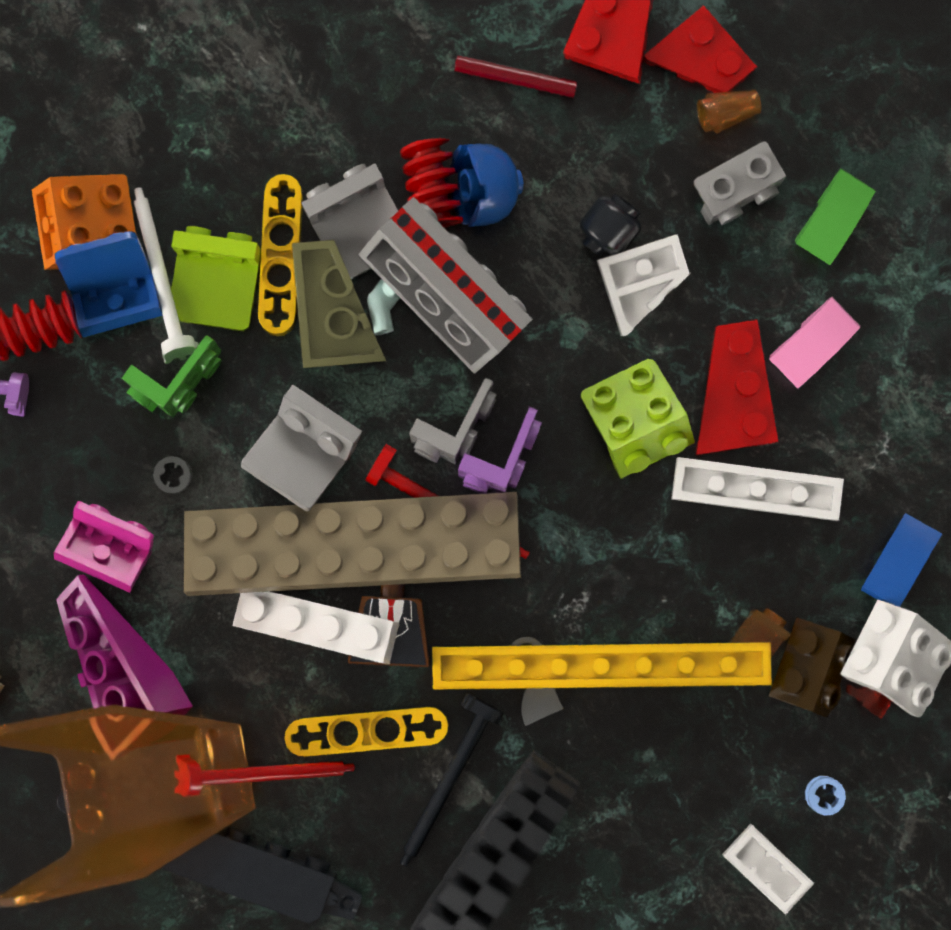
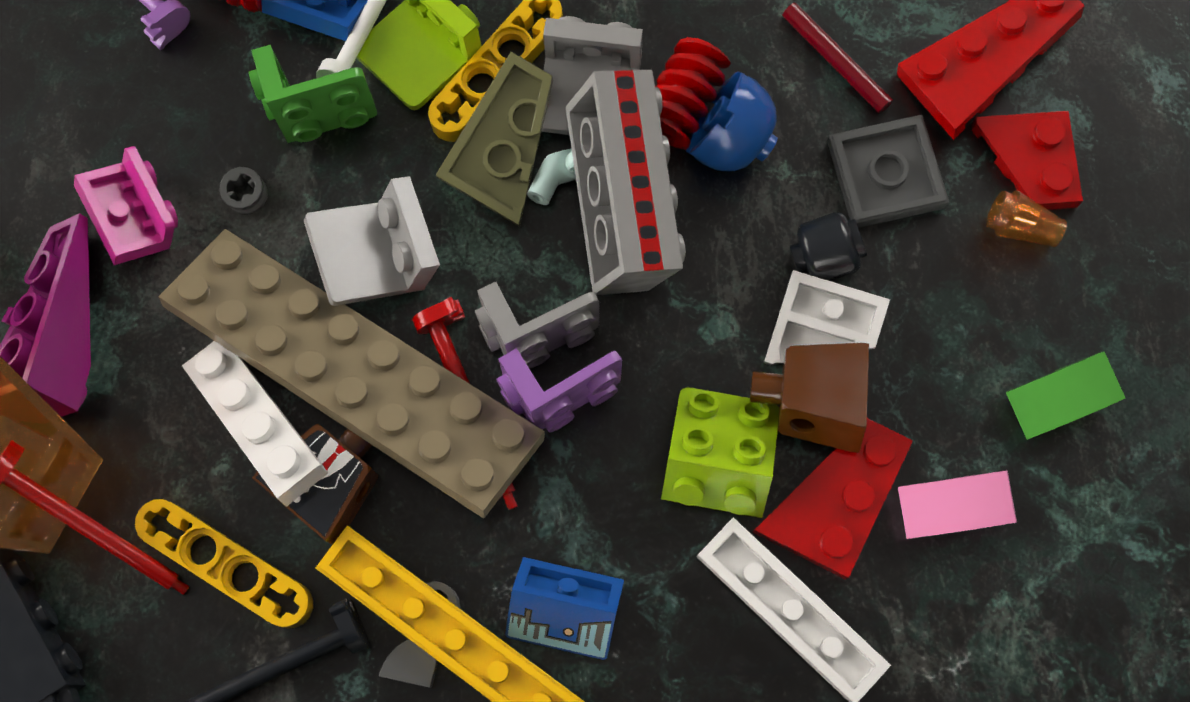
camera: 40 degrees right, 10 degrees down
(609, 137) = (887, 171): none -> dark grey tile
(611, 595) = (563, 608): none -> blue panel
(676, 333) = (819, 393): none -> reddish brown torso
(738, 182) = (988, 294): light grey bracket -> none

